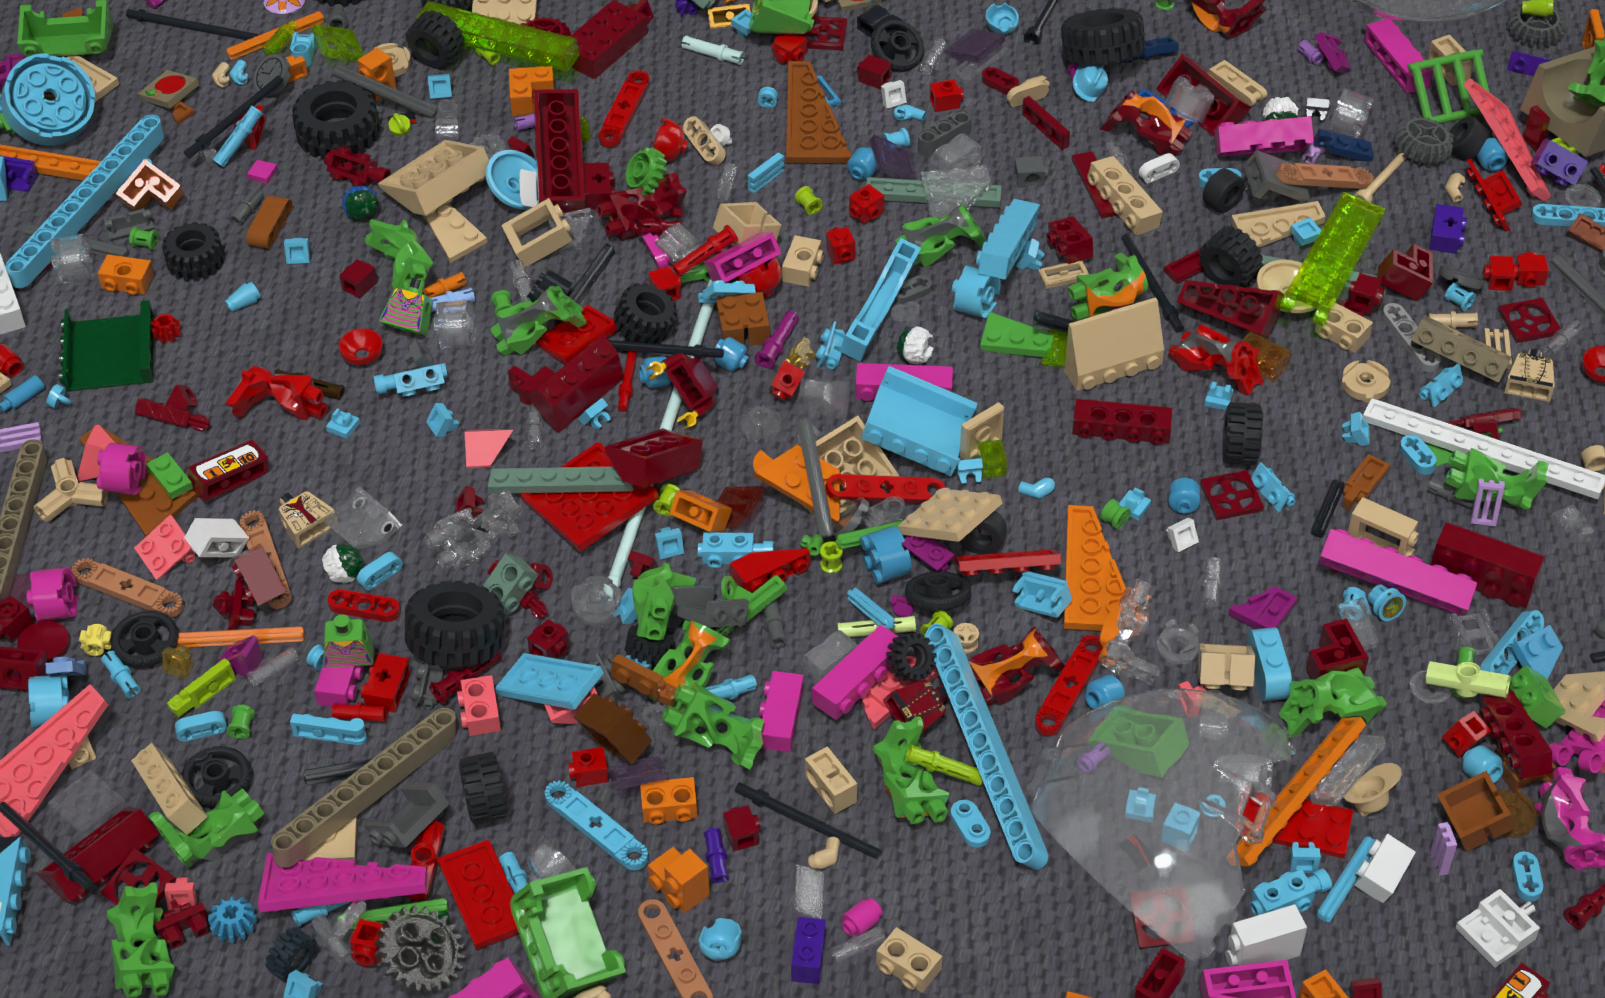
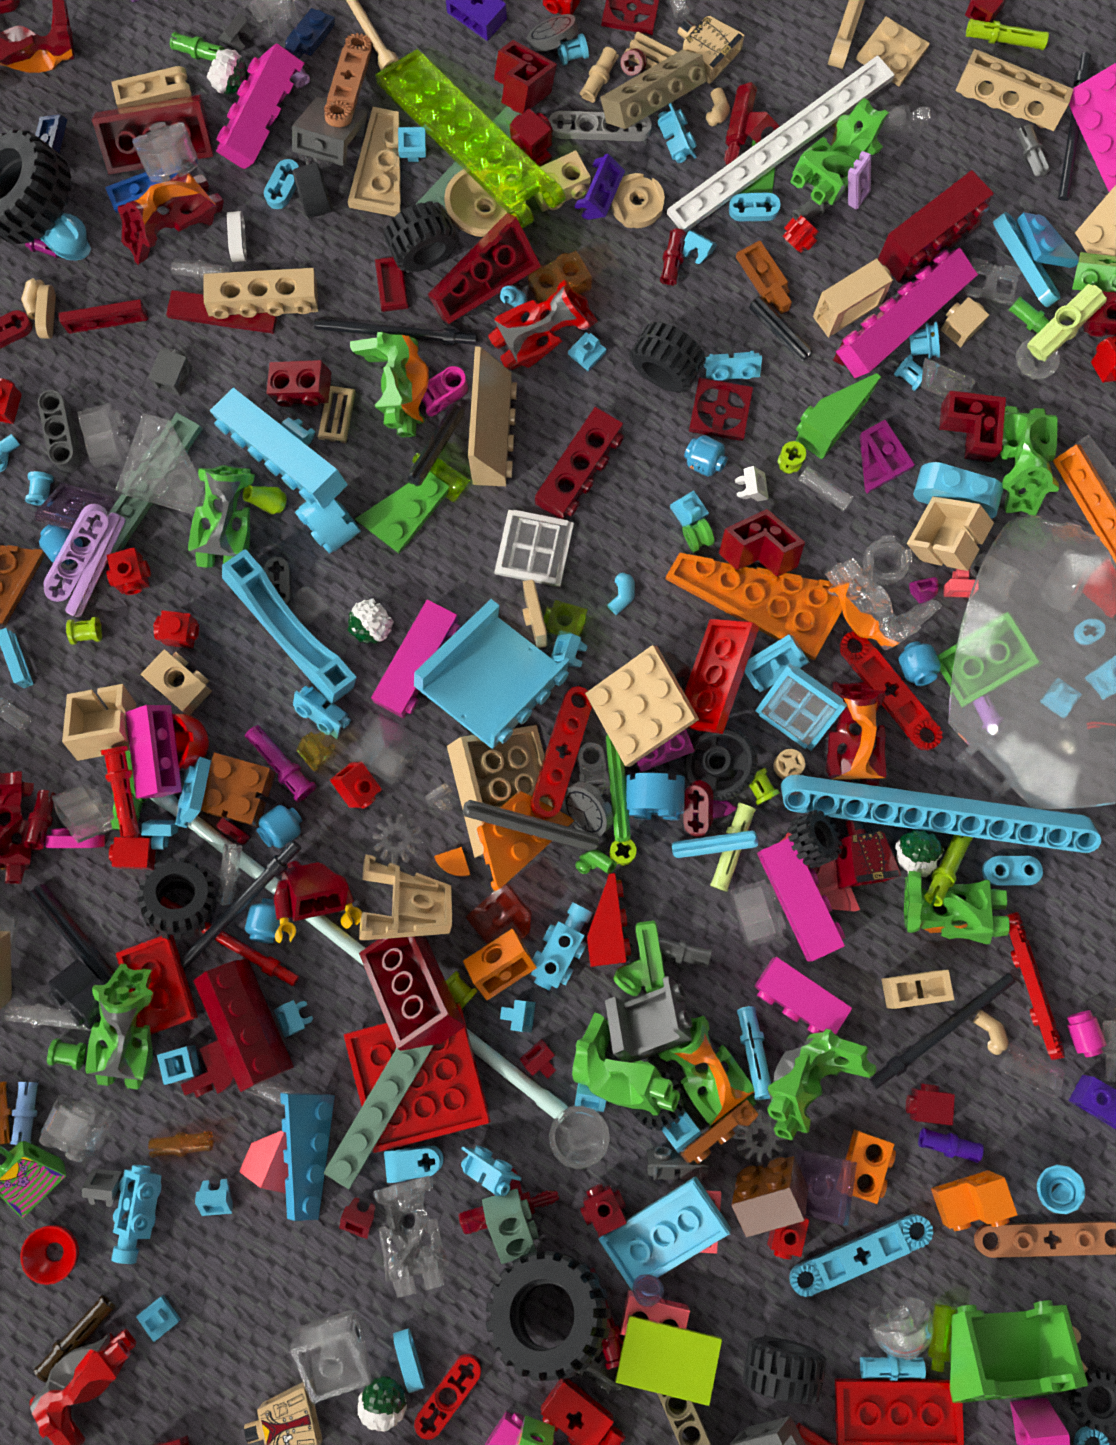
camera: 65 degrees left, 30 degrees up
(456, 711) = (668, 1360): none -> lime tile
(471, 389) = (181, 1144): none -> clear orange pin
(501, 683) = (648, 1290): none -> clear purple plate
(515, 448) = (307, 1134): none -> dark azure wing
(528, 358) = (179, 1064): none -> medium azure brick
(529, 523) = (407, 1163): none -> medium azure piece
(544, 557) = (498, 1172): none -> medium azure hinge
(683, 336) = (229, 874): none -> clear pin
(687, 293) = (160, 832): none -> medium azure tile
(713, 324) = (233, 831): none -> dark red tile
(715, 442) = (418, 904): none -> tan wing
(853, 185) = (95, 566): none -> lavender axle
(859, 167) = (79, 554): none -> lavender beam
(867, 875) = (1041, 1012): none -> red piece
(893, 588) = (692, 808): none -> dark red beam
(945, 739) = (919, 852): none -> dark green piece
(968, 251) = (266, 498): none -> lime cone
(1015, 617) = (800, 707): none -> clear piece
(1038, 424) = (534, 547): none -> clear piece
(1133, 543) = (763, 540): none -> dark red brick
(1167, 673) = (924, 589): none -> magenta tile
(1222, 545) = (787, 450): none -> lime bush
(1226, 328) = (514, 297): none -> medium azure arm
(1276, 558) = (832, 415): none -> bright green slope
(1288, 90) = (194, 46): none -> bright green pin
(1321, 422) = (673, 257): none -> dark red pin
(1355, 348) = (602, 188): none -> dark purple hinge
(1415, 487) = (800, 234): none -> red gear
(1423, 622) = (964, 321): none -> tan brick
(1480, 333) = (628, 55): none -> bush
(1485, 404) = (720, 109): none -> tan arm

